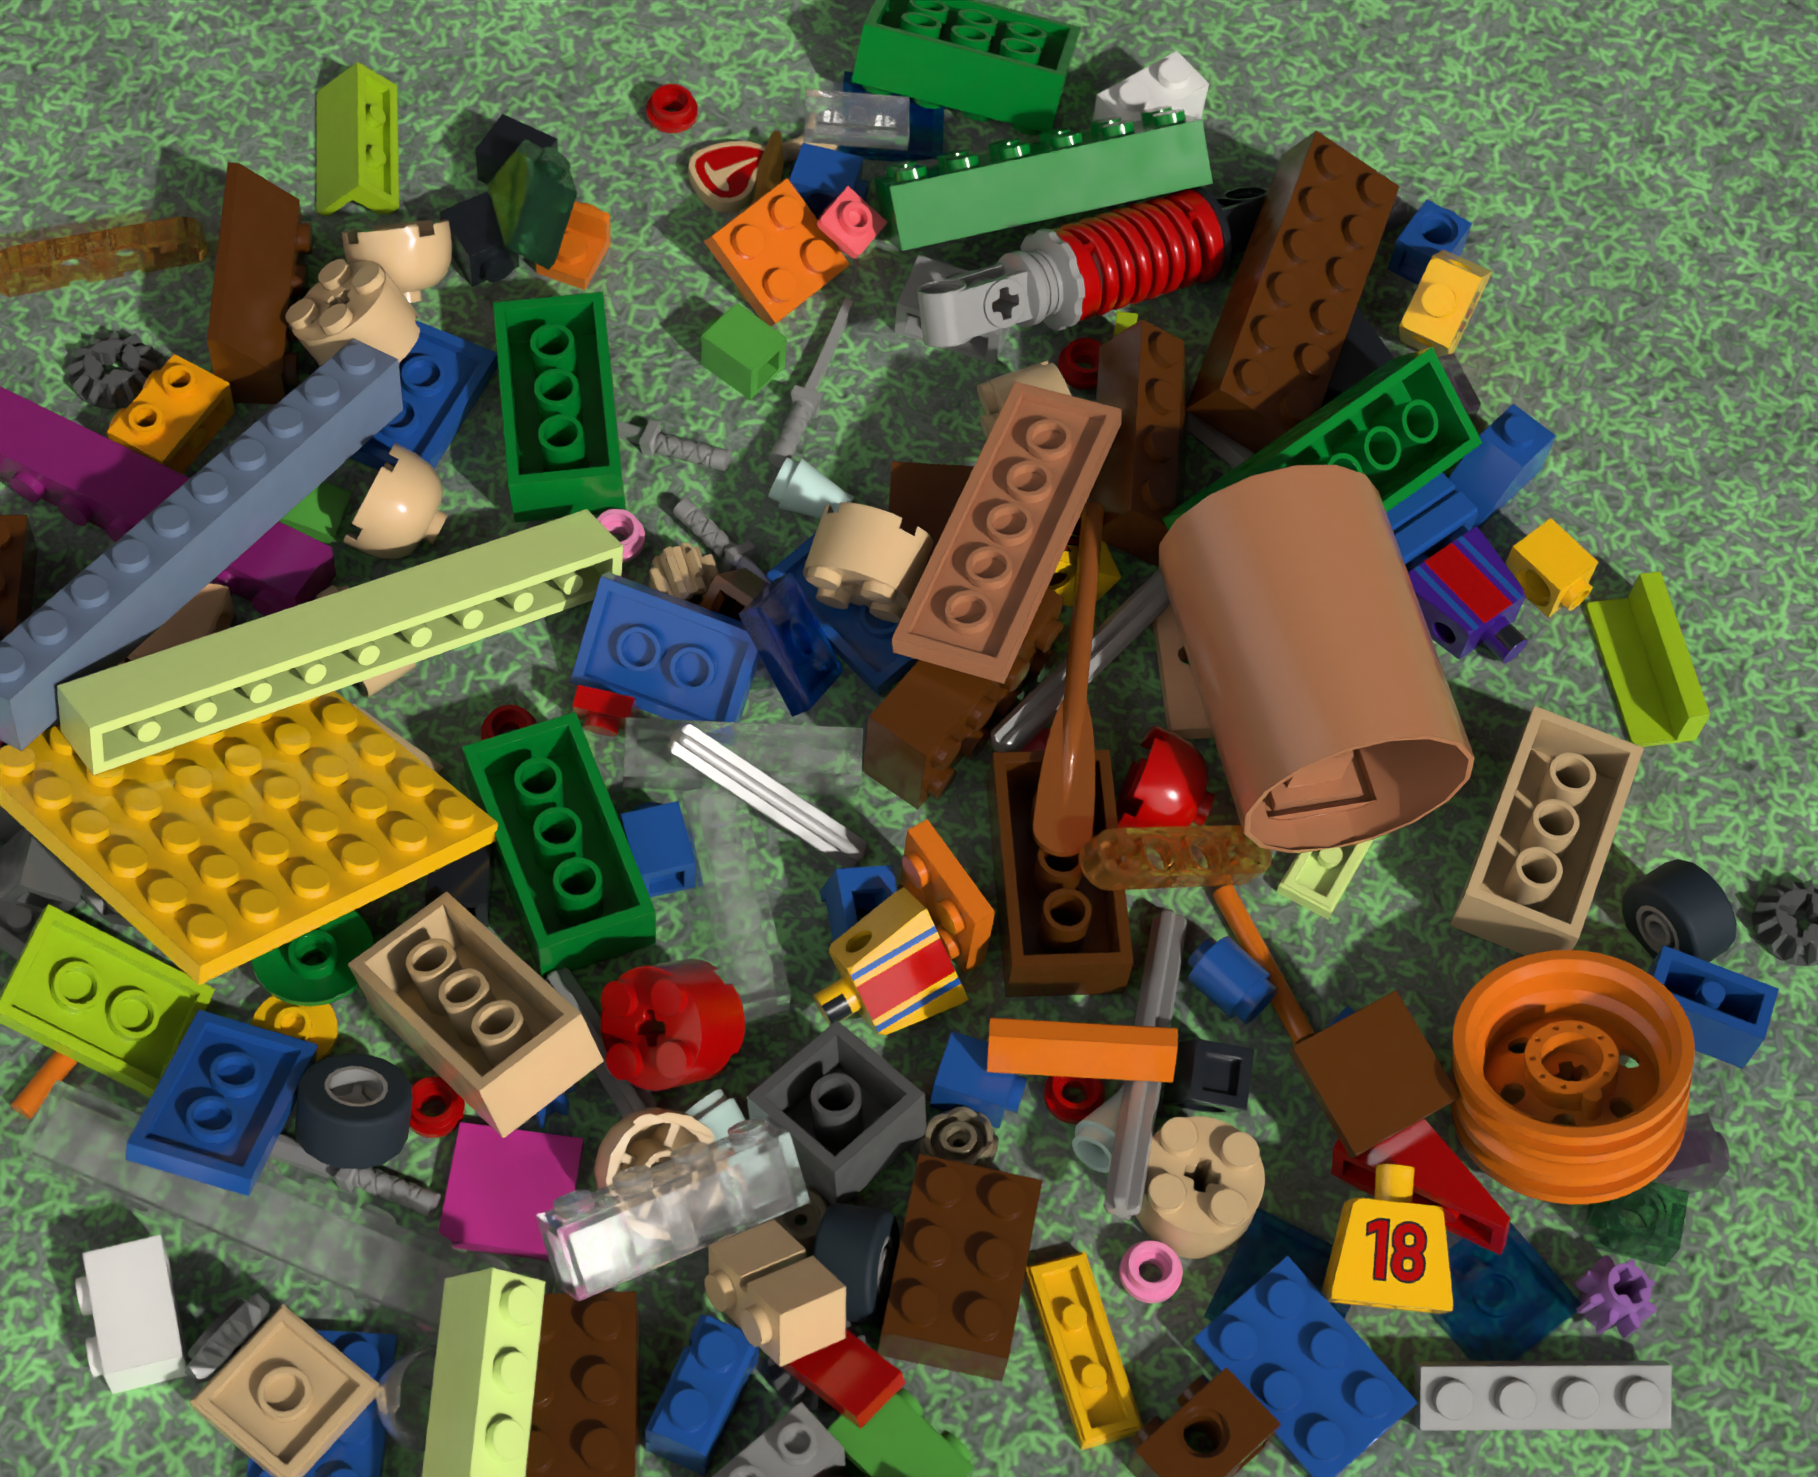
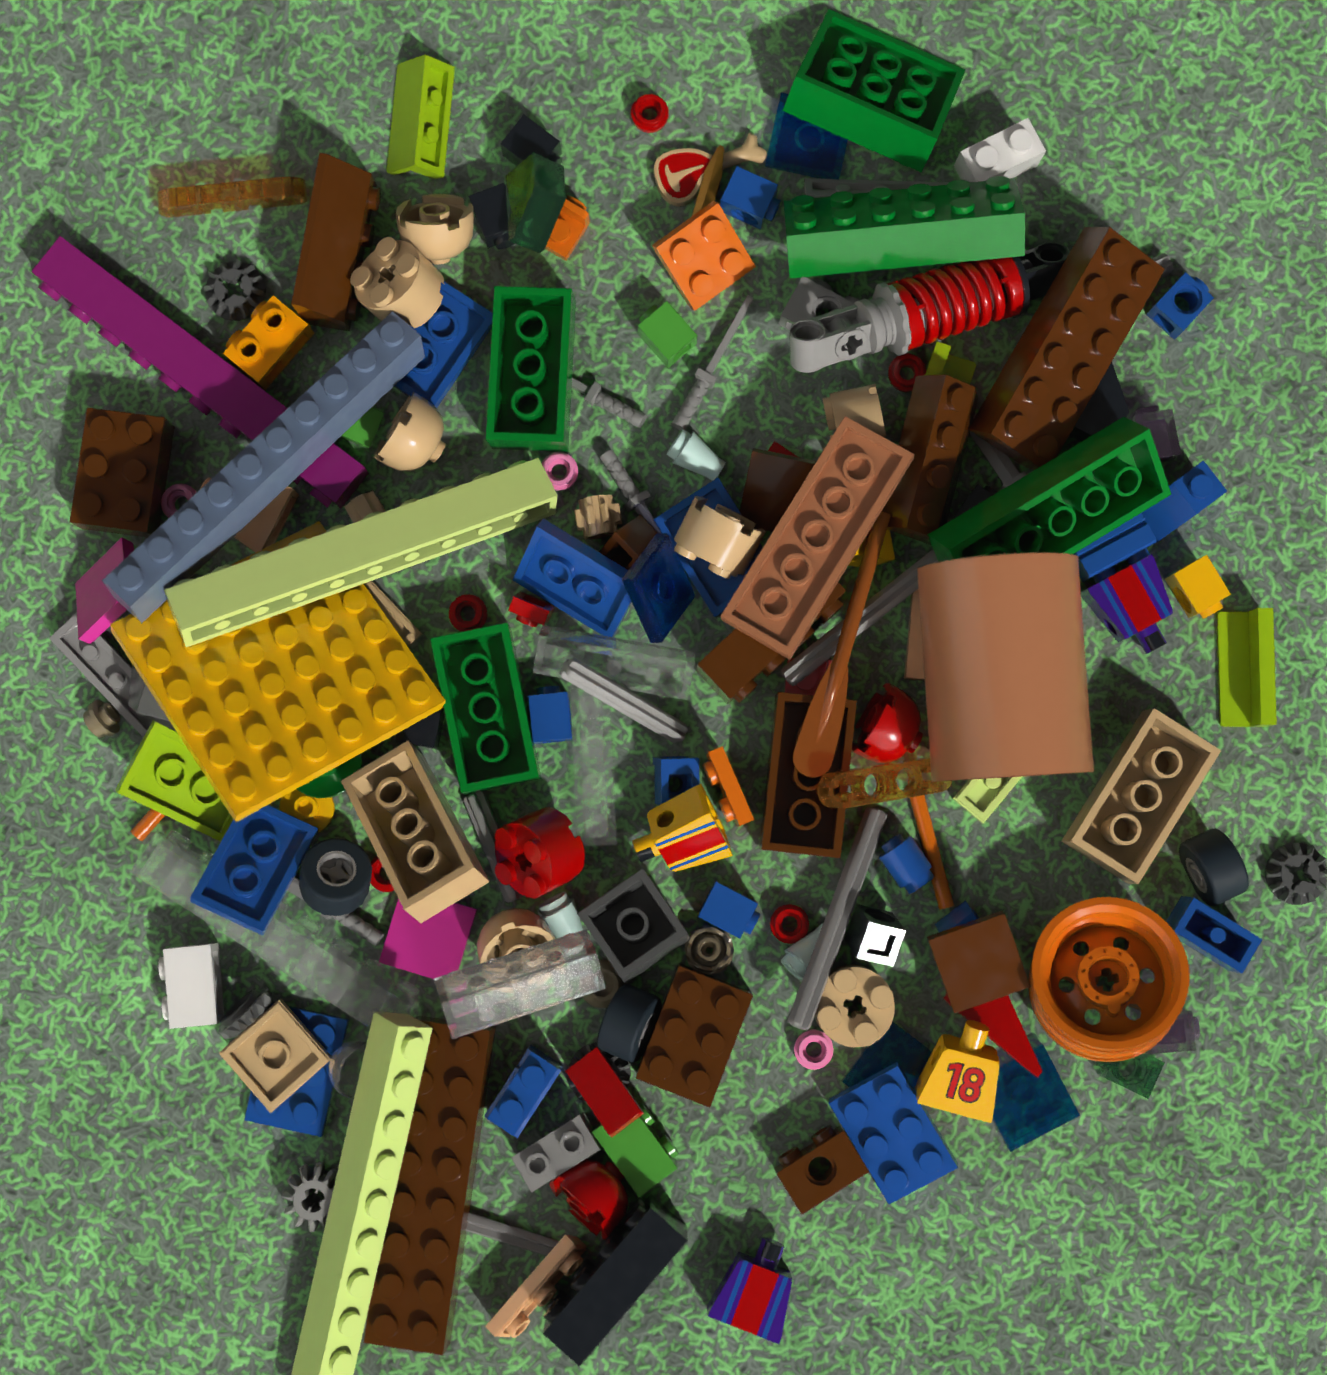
camera: 15 degrees right, 25 degrees up
(776, 1293) = (576, 1056): tan piece -> none
(850, 223) = (757, 243): coral bracket -> none
(856, 119) = (780, 145): clear plate -> none
(1082, 1050) = (793, 918): orange tile -> none
(1083, 1350) = (761, 1092): yellow tile -> none
(1443, 303) = (1175, 368): yellow torso -> none
(1542, 1395) = (1039, 1169): light grey plate -> none
(1615, 1296) = (1094, 1108): medium lavender gear -> none

